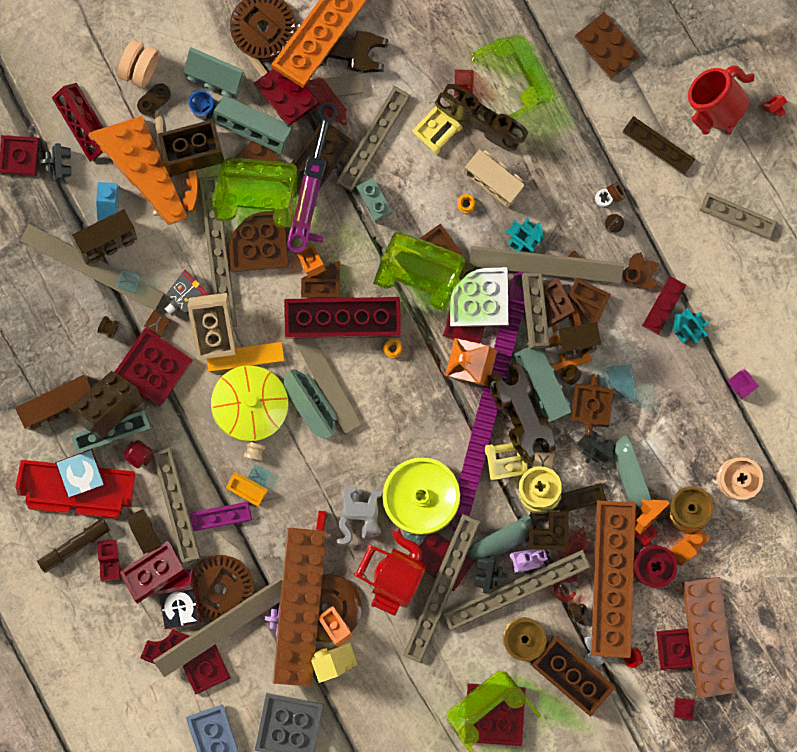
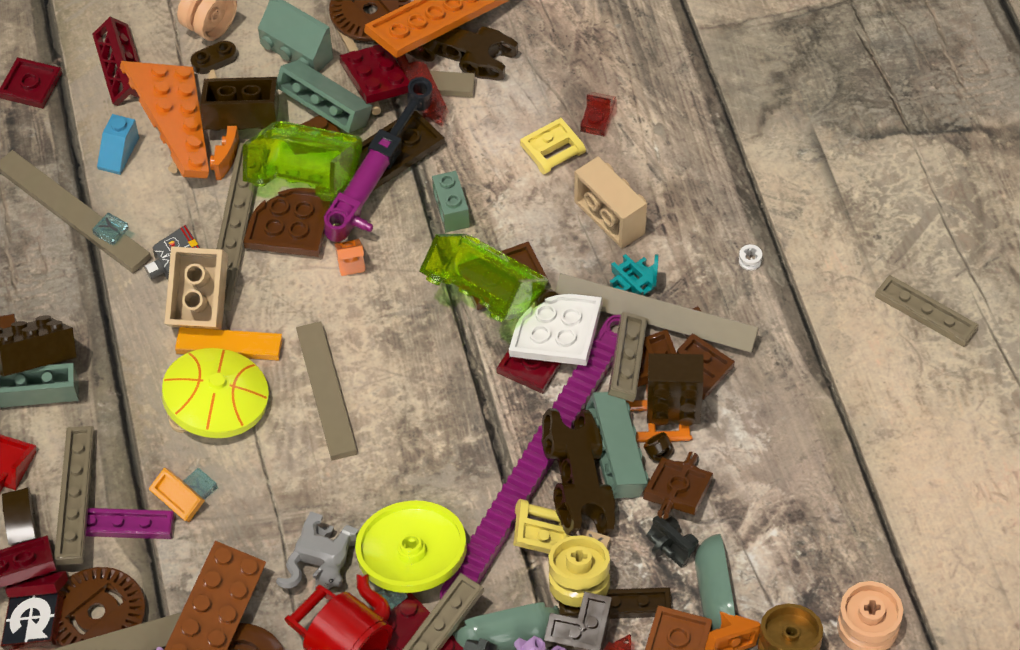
camera: 15 degrees right, 30 degrees down
(59, 170) = (80, 86): pearl dark grey hips -> none
(105, 237) = (98, 170): dark brown brick -> none
(108, 327) = (65, 274): dark brown wheel -> none
(138, 454) = (47, 422): dark red head -> none
(153, 366) = (109, 330): dark red plate -> none
(157, 323) = (129, 285): reddish brown tile -> none
(202, 105) = (267, 60): blue wheel -> none
(254, 451) = (202, 450): tan wheel -> none
(310, 403) = (295, 408): sand green brick -> none
(321, 520) = (265, 549): red tile -> none
(322, 285) = (355, 280): reddish brown wing -> none
(342, 318) = (368, 316): dark red brick -> none
(373, 139) = (470, 142): dark tan tile -> none
(388, 343) = (425, 364): light orange plate -> none
(466, 197) = (568, 224): light orange plate -> none
(467, 108) = (624, 142): dark brown piece -> none
(471, 362) = (523, 398): orange piece -> none
(539, 90) = (686, 125): clear neon green windscreen -> none
(607, 45) = (791, 102): reddish brown plate -> none
(614, 223) = (757, 287): dark brown tile -> none
(616, 192) = (767, 250): reddish brown tile -> none
(621, 380) = (725, 463): clear light blue slope -> none
(643, 271) = (783, 347): reddish brown plate -> none
(658, 145) = (835, 216): dark brown tile -> none
(664, 305) = (804, 392): dark red plate -> none
(684, 325) = (832, 424): teal piece -> none
(719, 98) = (922, 166): red piece -> none
(742, 383) = (897, 505): magenta panel -> none
(775, 105) = (997, 197): red tile -> none

